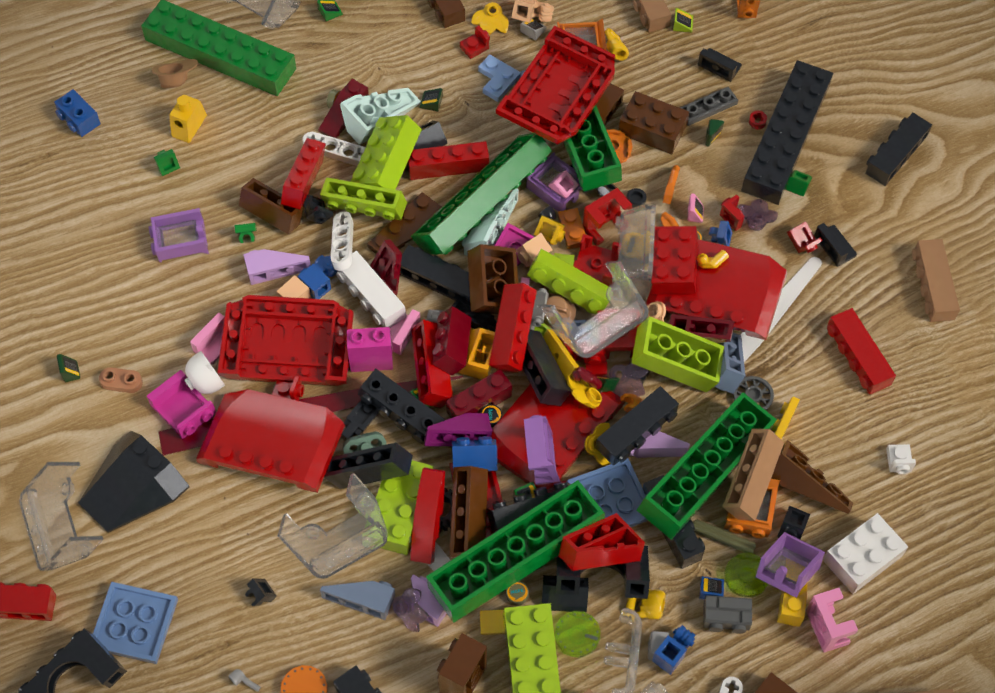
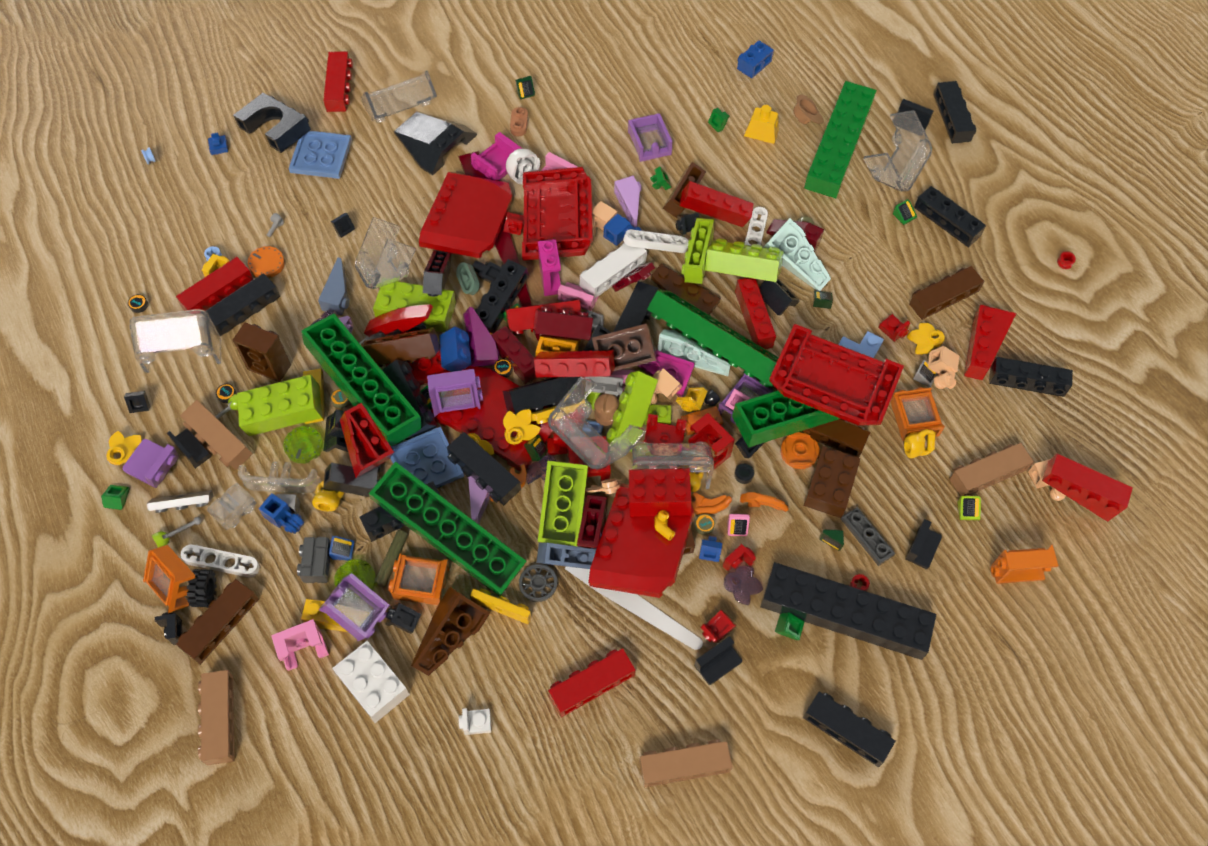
camera: 85 degrees right, 0 degrees up
(588, 377) = (528, 426): dark red arm -> none
(753, 474) = (435, 567): medium nougat brick -> none

